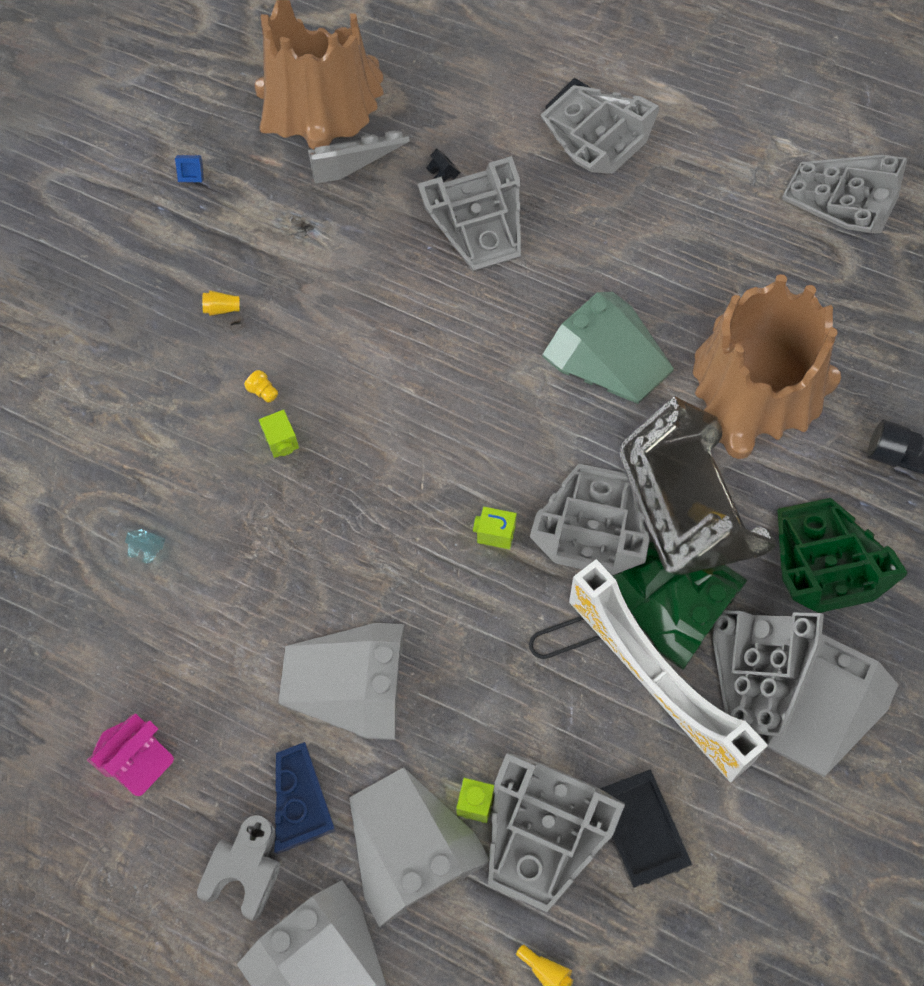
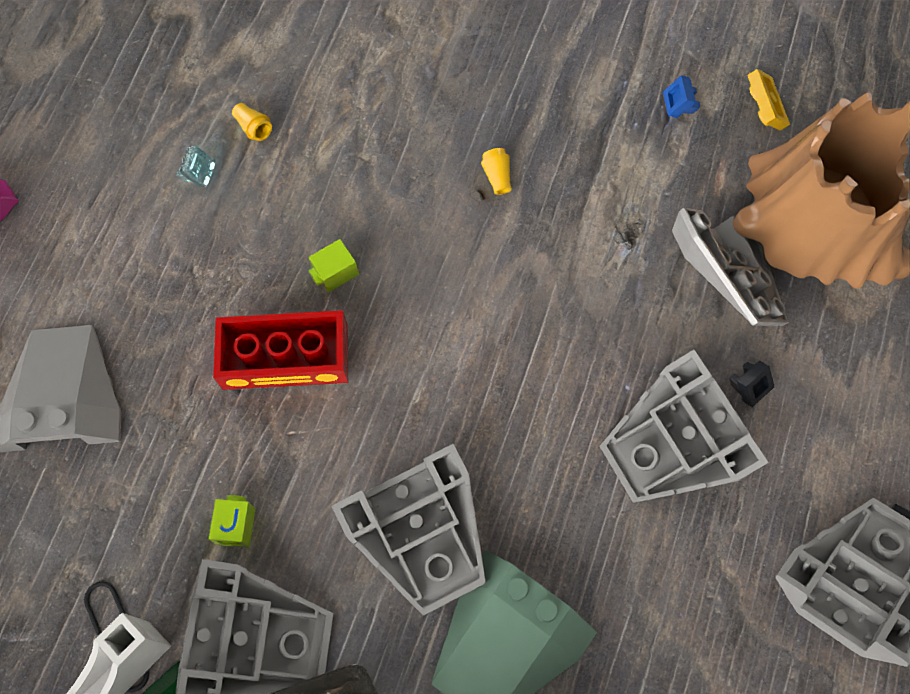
camera: 85 degrees right, 5 degrees up
(109, 492) = (255, 124): none -> yellow cone
(200, 116) = (768, 99): none -> yellow plate
(260, 385) = (394, 236): yellow piece -> none
(351, 476) = (281, 350): none -> red brick
(522, 384) = (420, 530): none -> light grey wedge

